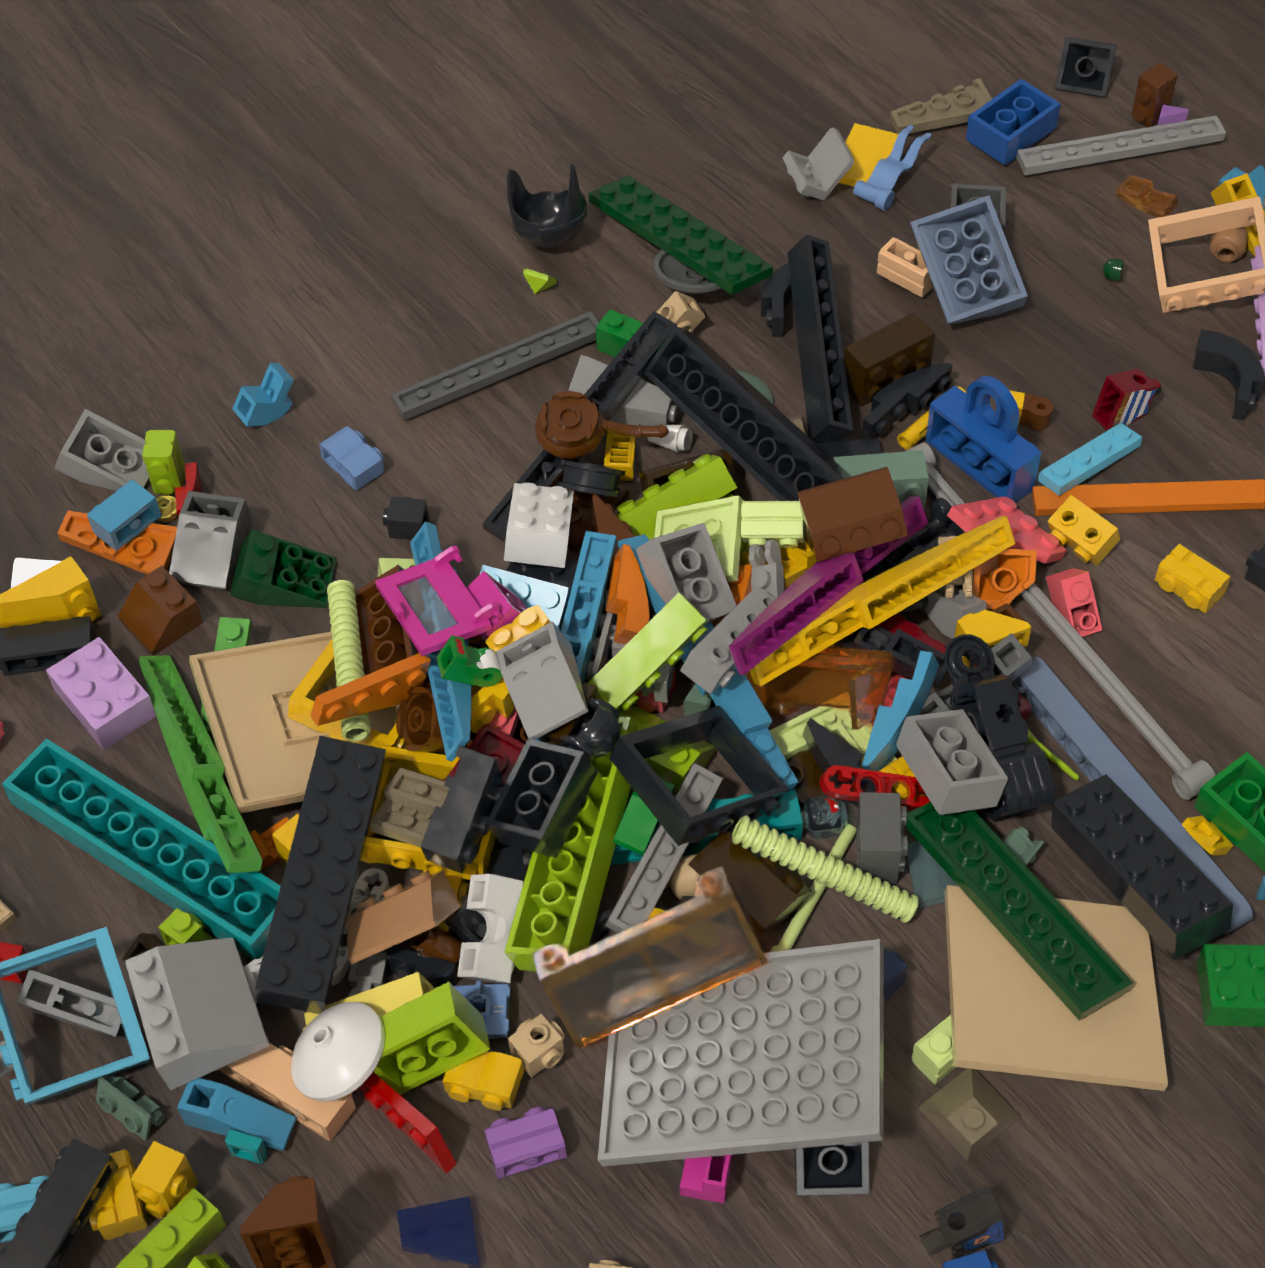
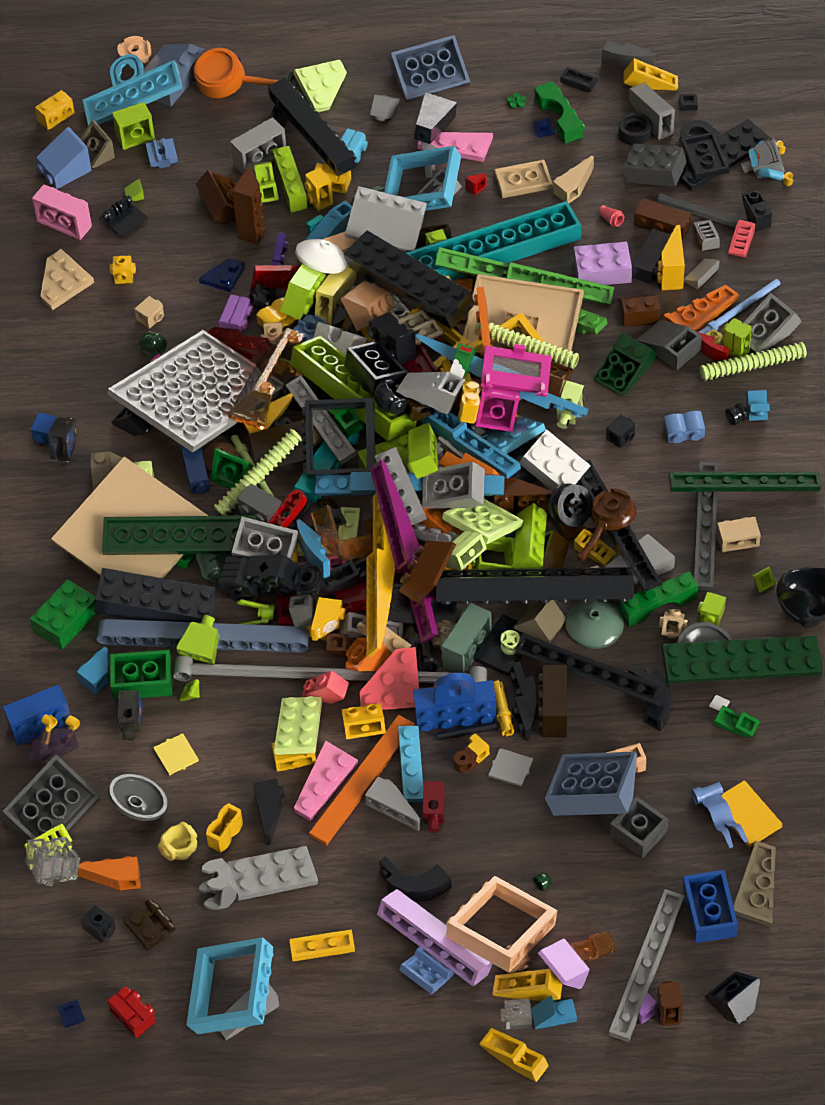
camera: 125 degrees right, 0 degrees up
(63, 502) = (714, 325): none -> light blue bar
(124, 515) = (710, 308): dark azure brick -> none
(192, 448) = (753, 361): none -> yellowish green piece
(291, 417) = (736, 414): none -> black wheel
(355, 1159) = (281, 246): none -> dark purple hinge
(409, 351) = (743, 481): none -> dark green plate
(460, 1122) = (262, 296): none -> black rock
(493, 321) = (738, 534): none -> tan brick
(581, 1094) = (244, 345): none -> clear red slope
(624, 296) = (712, 608): none -> lime brick
(673, 1232) = (152, 343): none -> clear green head
(747, 243) = (717, 702): none -> white sticker
(758, 216) = (735, 723): none -> green slope
(822, 168) = (749, 766): light grey bracket -> none
(827, 919) = (228, 469): none -> green slope
(841, 440) = (510, 637): none -> yellowish green wheel
(1003, 368) = (510, 767): none -> light grey piece
(1153, 761) = (200, 641): none -> lime torso
(1159, 451) = (388, 800): none -> light grey slope
(1159, 585) = (298, 725): none -> yellowish green plate
(1198, 532) = (325, 778): none -> bright pink wing
(1202, 182) = (565, 964): none -> lavender slope
(1207, 835) = (149, 641): yellow slope -> none
(1218, 750) = (190, 691): none -> lime slope

